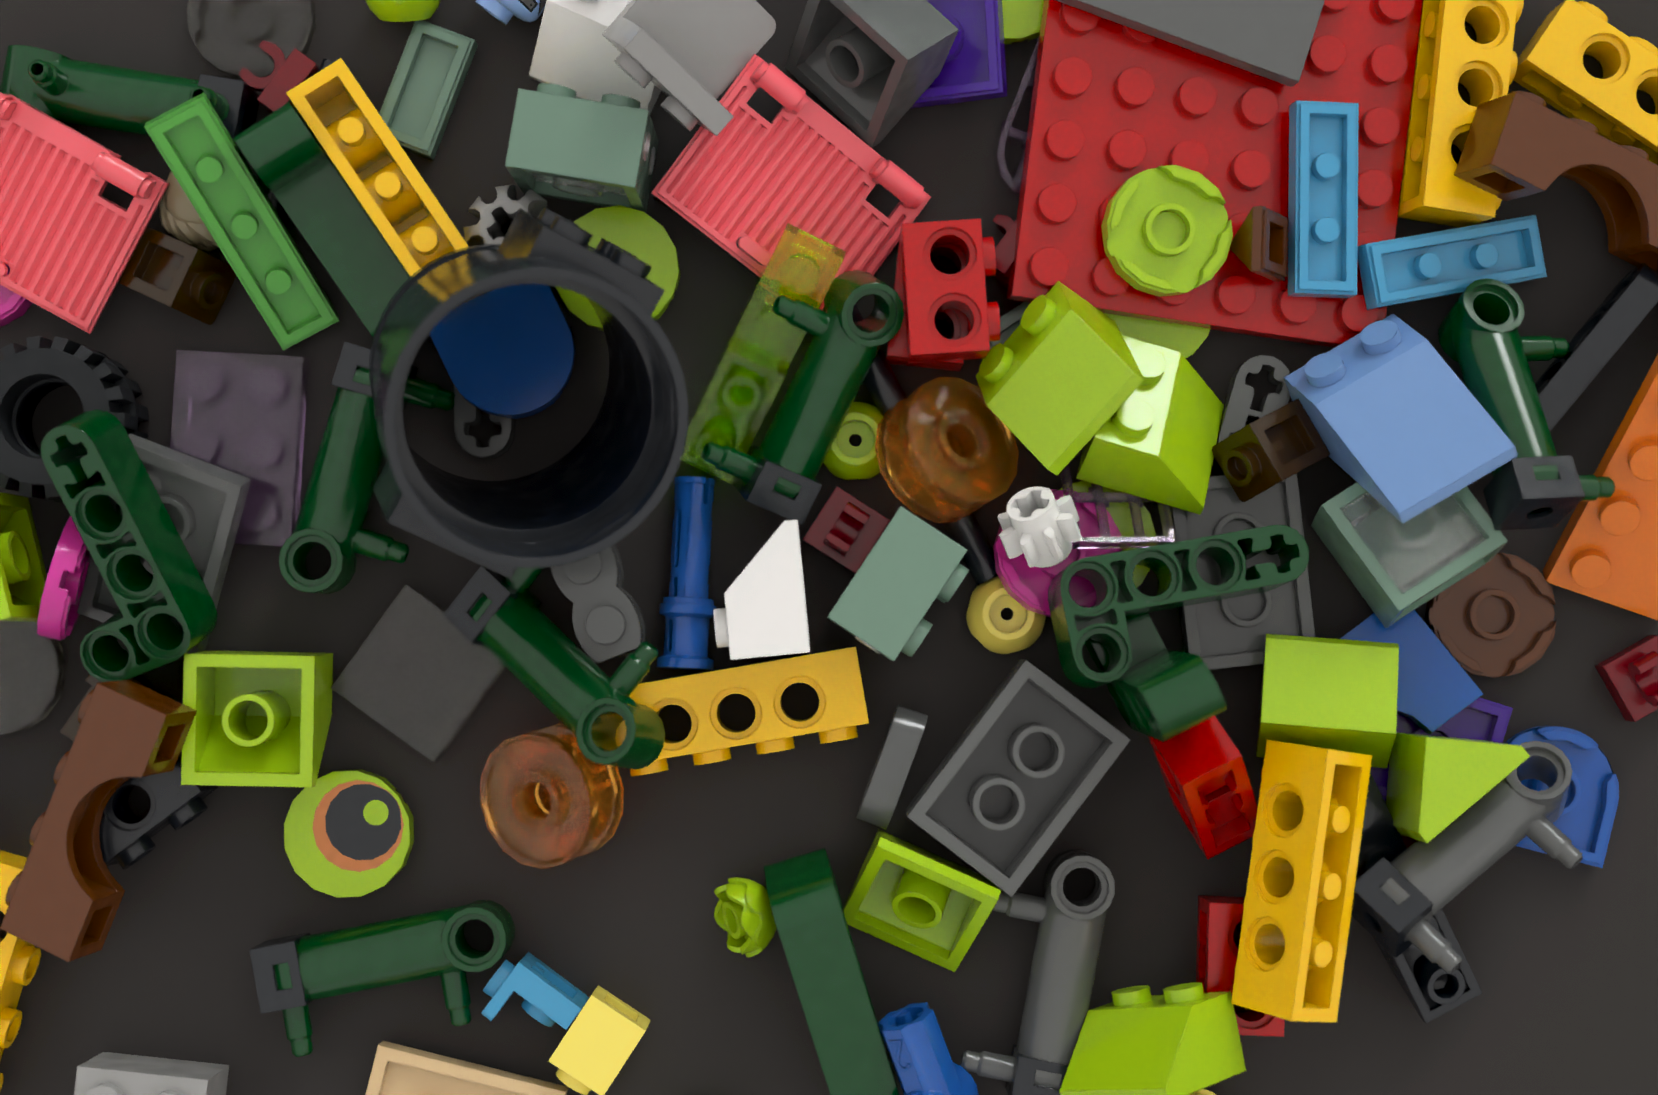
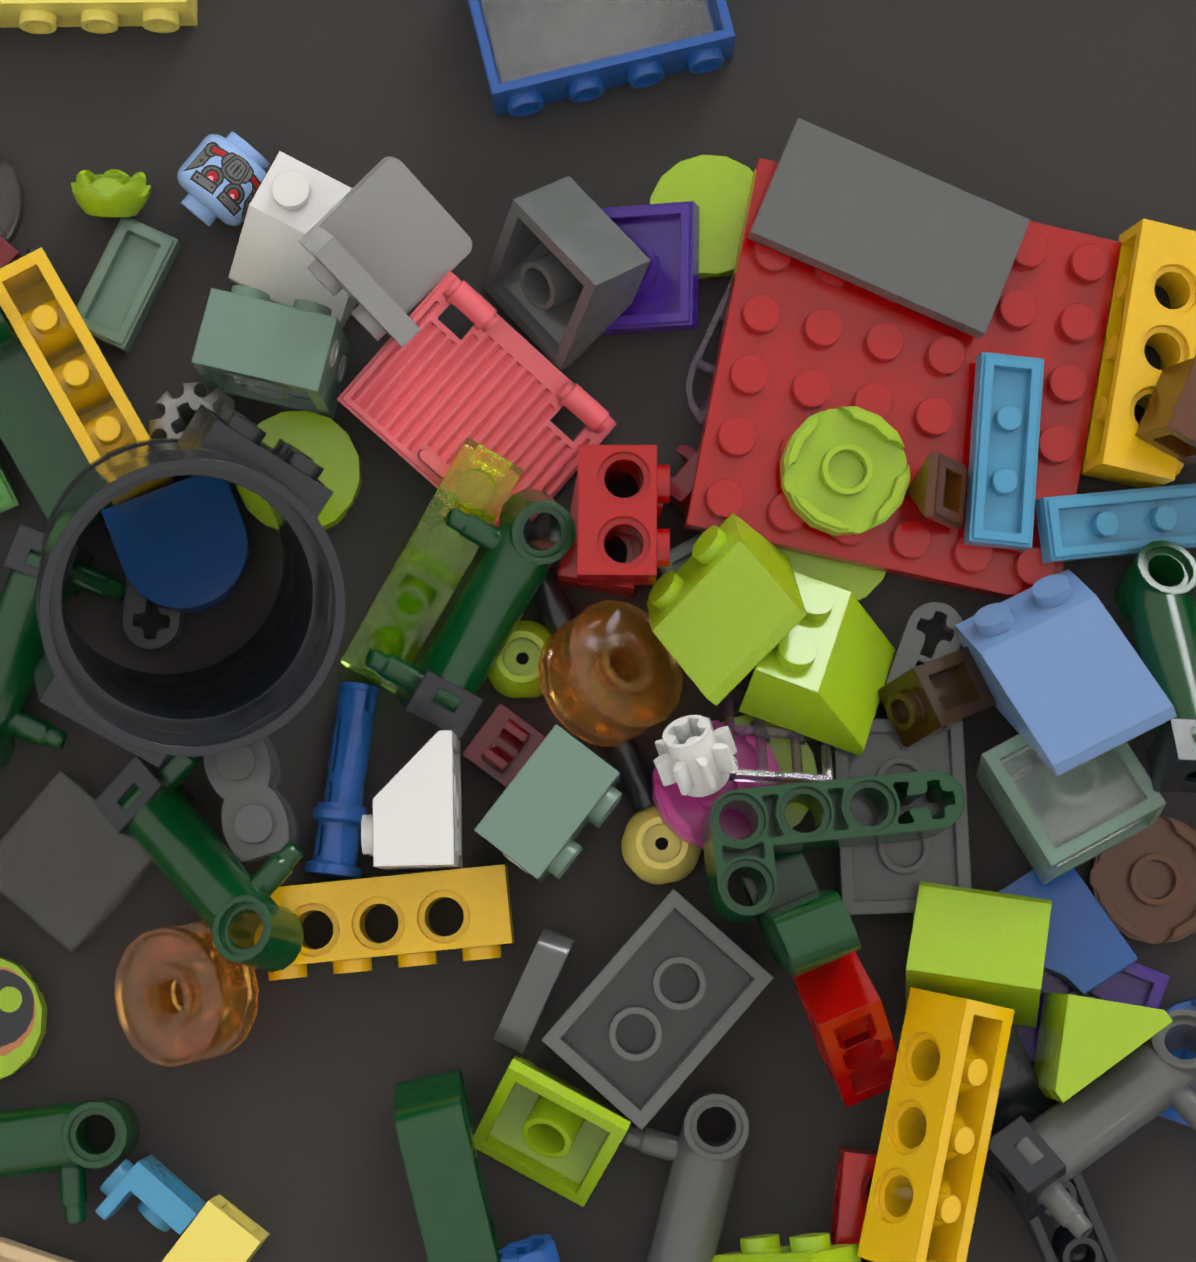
camera: 10 degrees right, 5 degrees down
(745, 915) = (371, 1132): lime plate -> none

